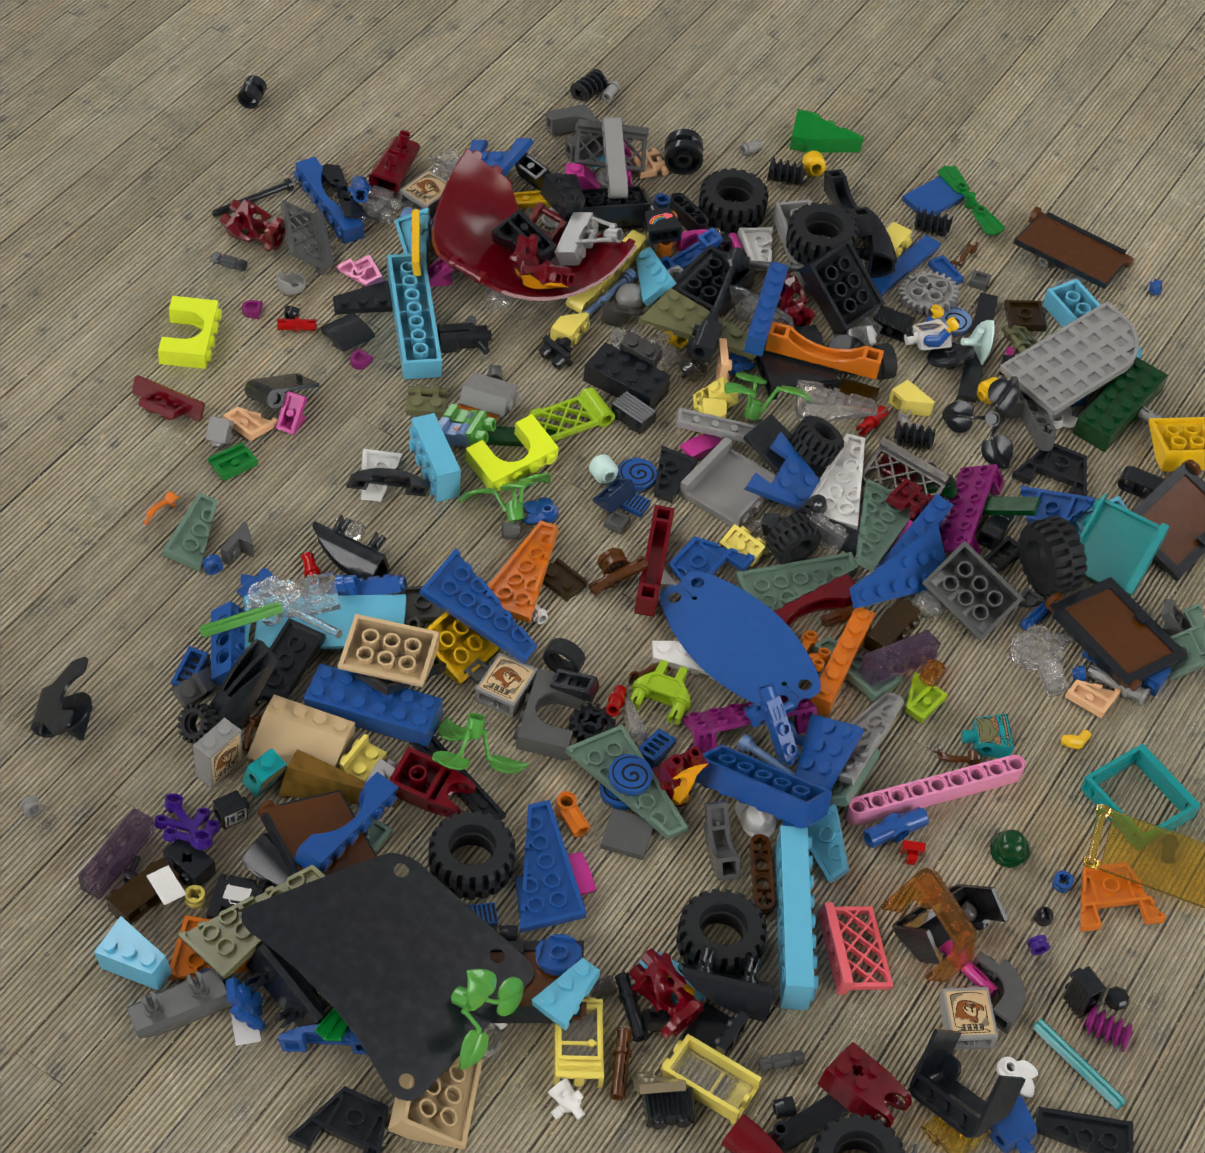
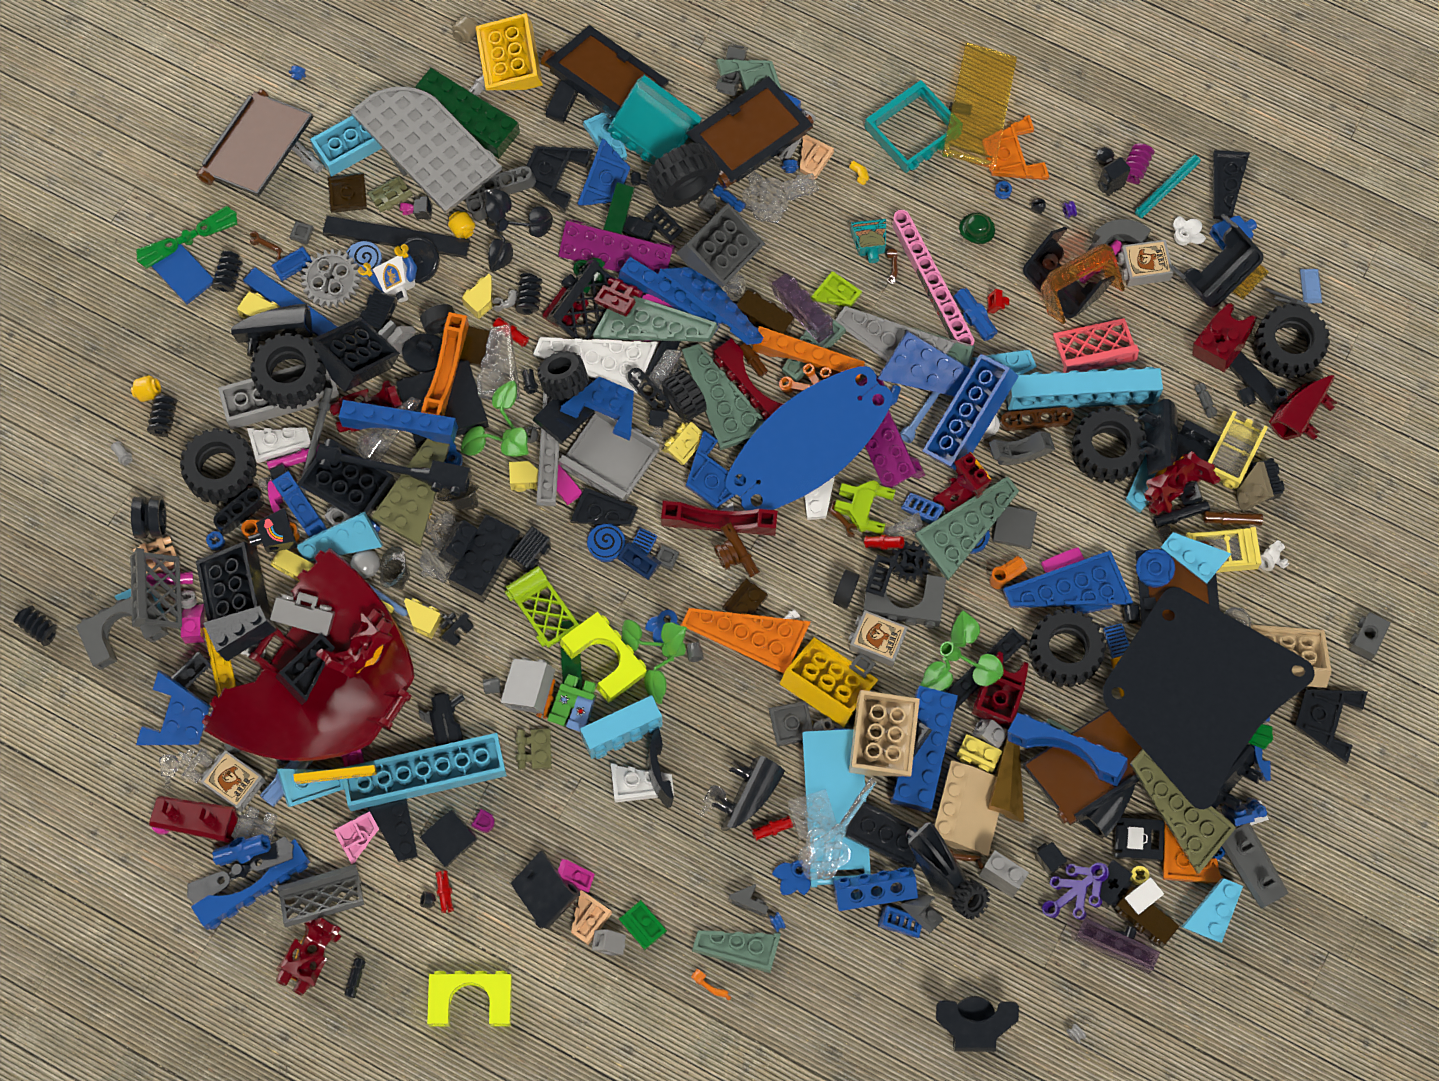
camera: 90 degrees left, 20 degrees up
(165, 400) = (573, 1006): dark red bracket -> none
(241, 619) = (861, 874): bright green axle -> none
(251, 92) = (81, 997): black wheel -> none
(252, 308) = (423, 942): magenta tile -> none
(266, 770) = (1012, 831): teal torso -> none
(288, 184) = (228, 934): black bar -> none
(291, 283) = (386, 905): light grey hair -> none
(372, 586) = (793, 765): blue piece -> none
(472, 602) = (809, 670): blue wing -> none
(480, 986) = (1224, 628): bright green plant -> none
(603, 469) = (609, 572): light aqua head -> none
(611, 234) = (313, 573): light grey plant -> none
(612, 88) = (39, 603): light grey pin -> none
(614, 157) = (185, 580): light grey beam -> none
(630, 774) = (969, 523): blue tile -> none
(715, 390) = (499, 475): light yellow slope -> none
(724, 364) = (470, 461): light nougat wing -> none
(774, 713) = (900, 403): blue piece -> none
(819, 135) = (102, 389): green wedge -> none
(839, 193) = (196, 361): black arch -> none
(932, 672) = (814, 282): clear orange beam -> none
(981, 340) = (404, 227): light aqua shield -> none

